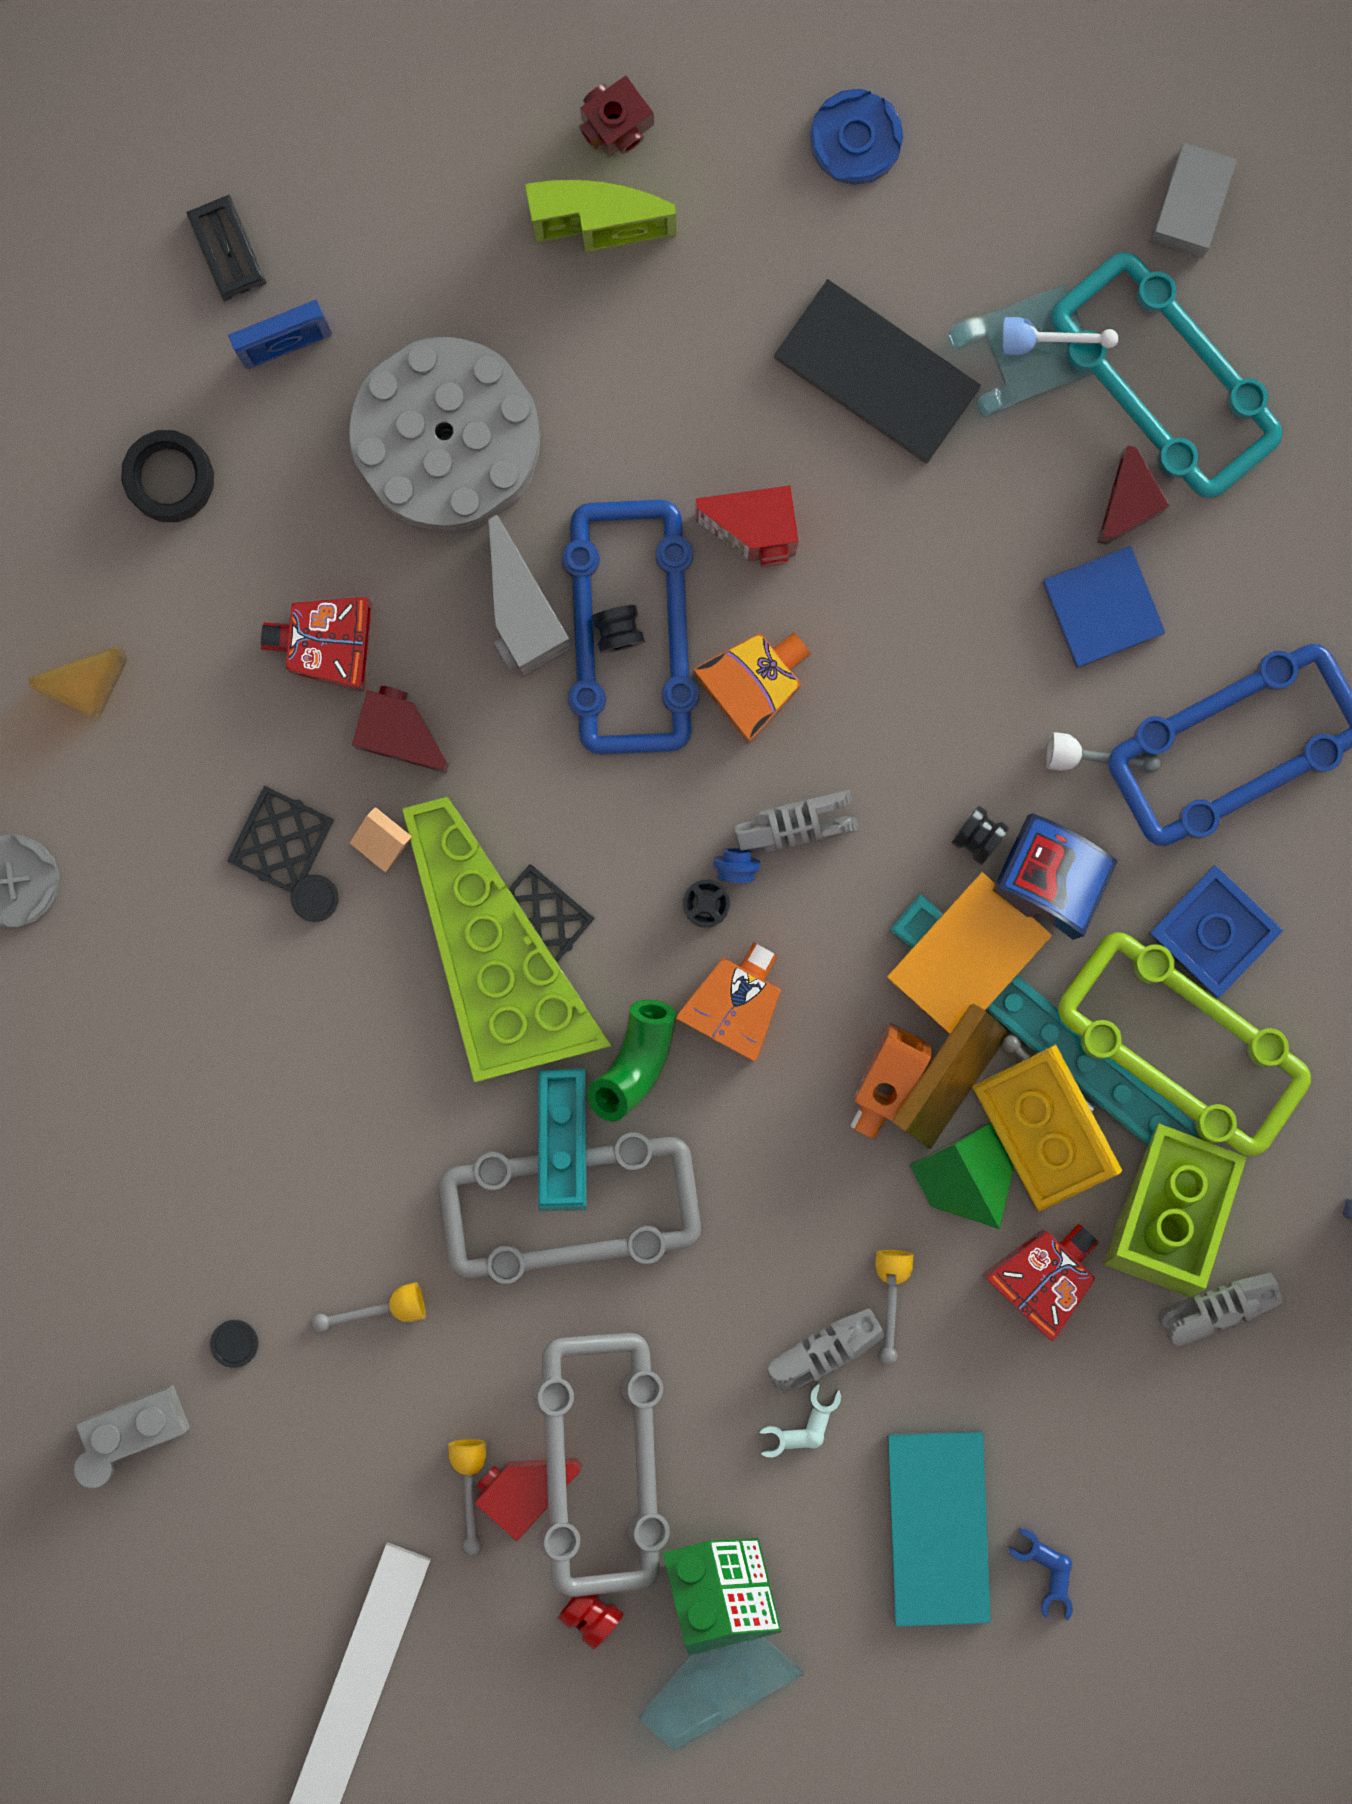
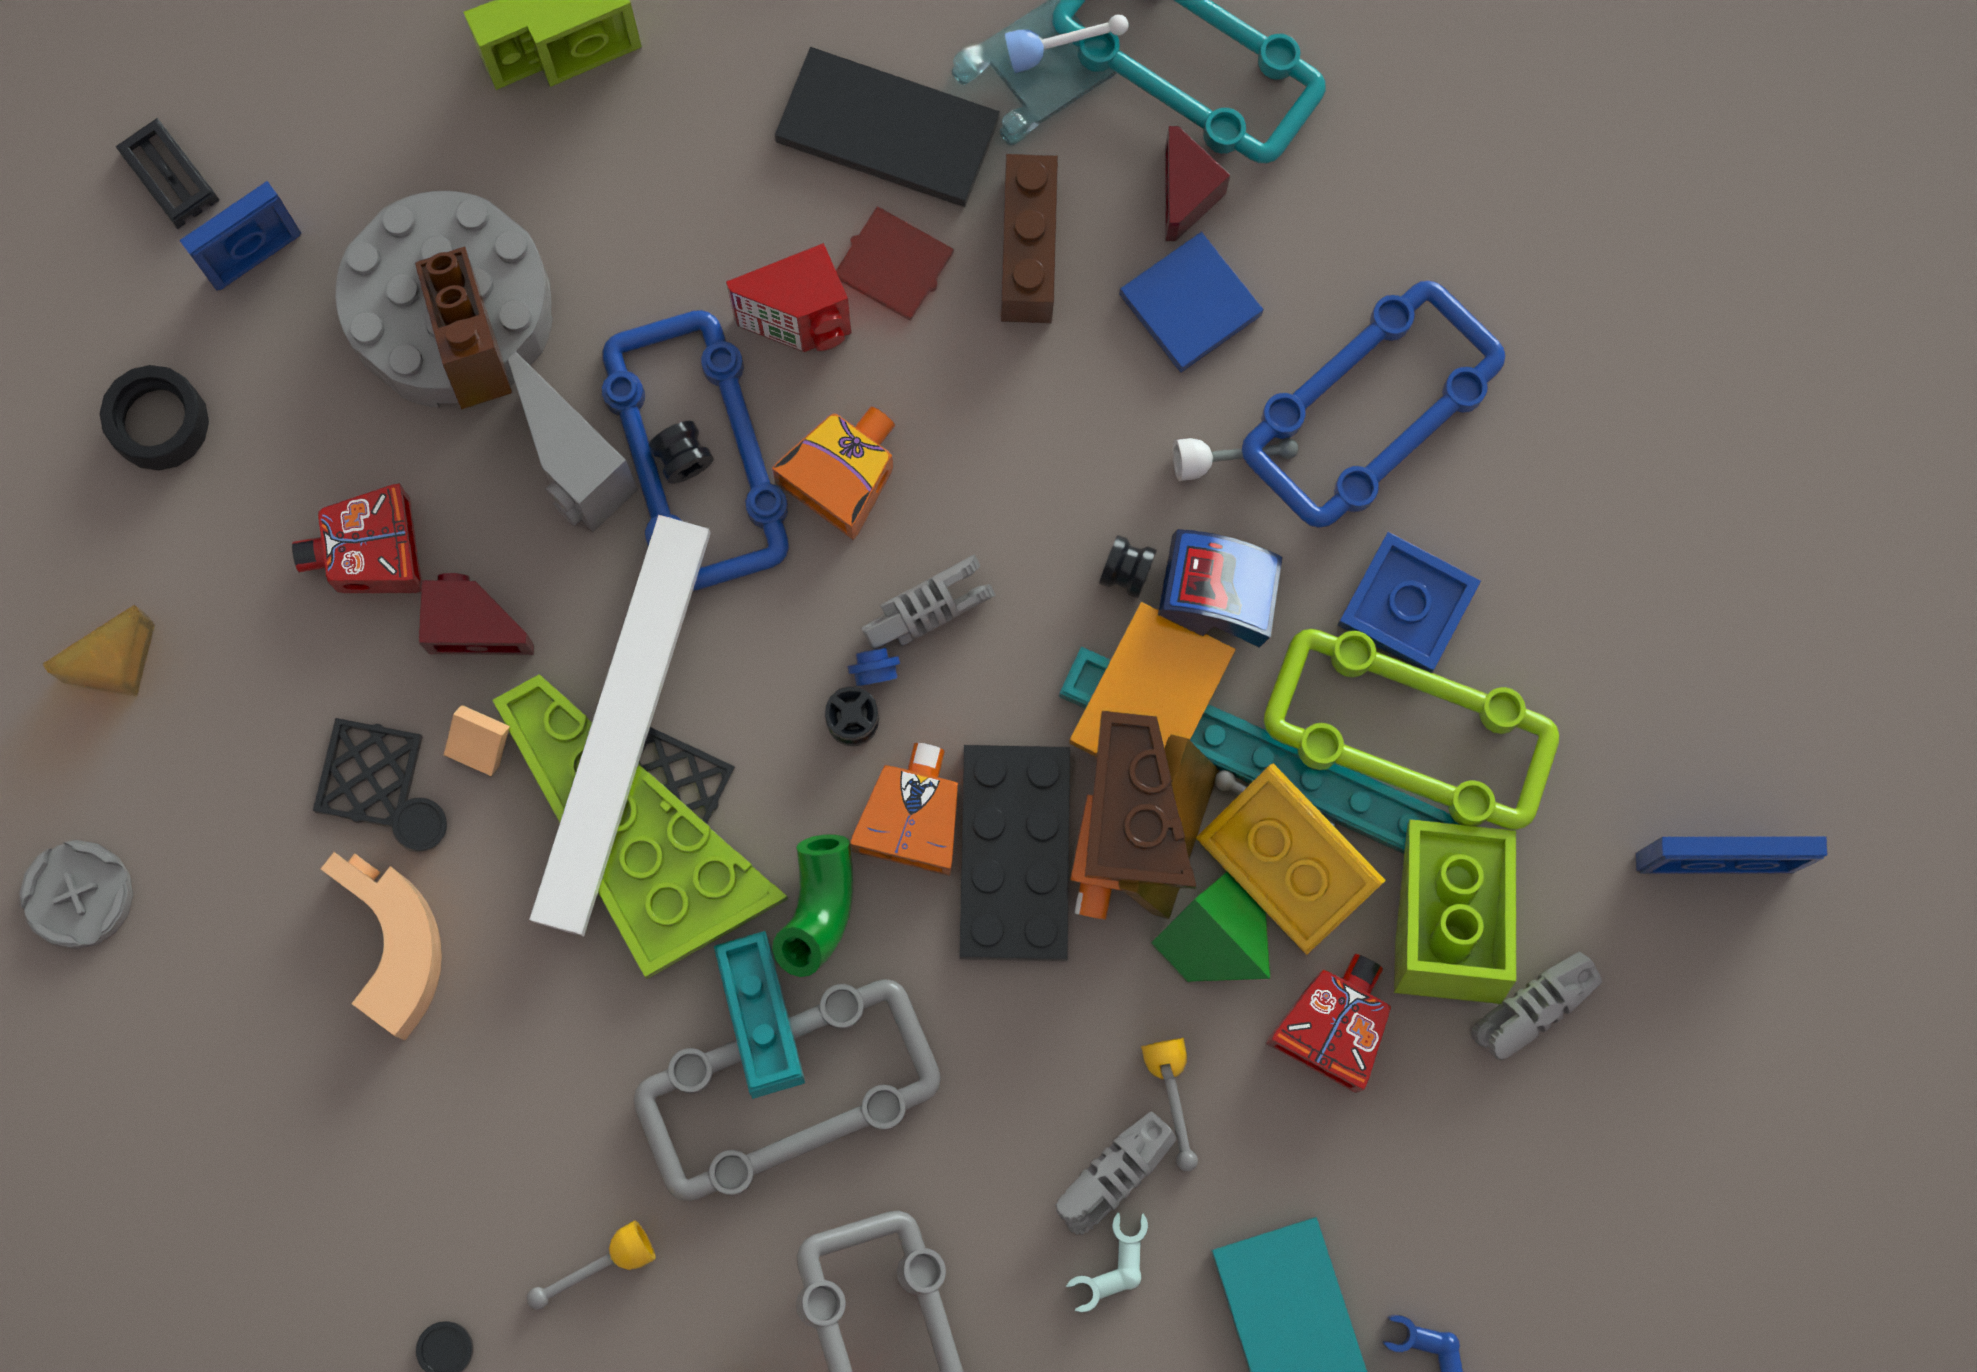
camera: 20 degrees left, 10 degrees down
(285, 998) = (412, 945): none -> light nougat arch
(456, 477) = (462, 328): none -> reddish brown slope
(507, 860) = (620, 726): none -> white tile
(814, 1057) = (1015, 853): none -> black plate
(849, 500) = (894, 263): none -> clear red piece
(923, 1061) = (1134, 809): none -> reddish brown wing
(975, 514) = (1029, 238): none -> reddish brown brick

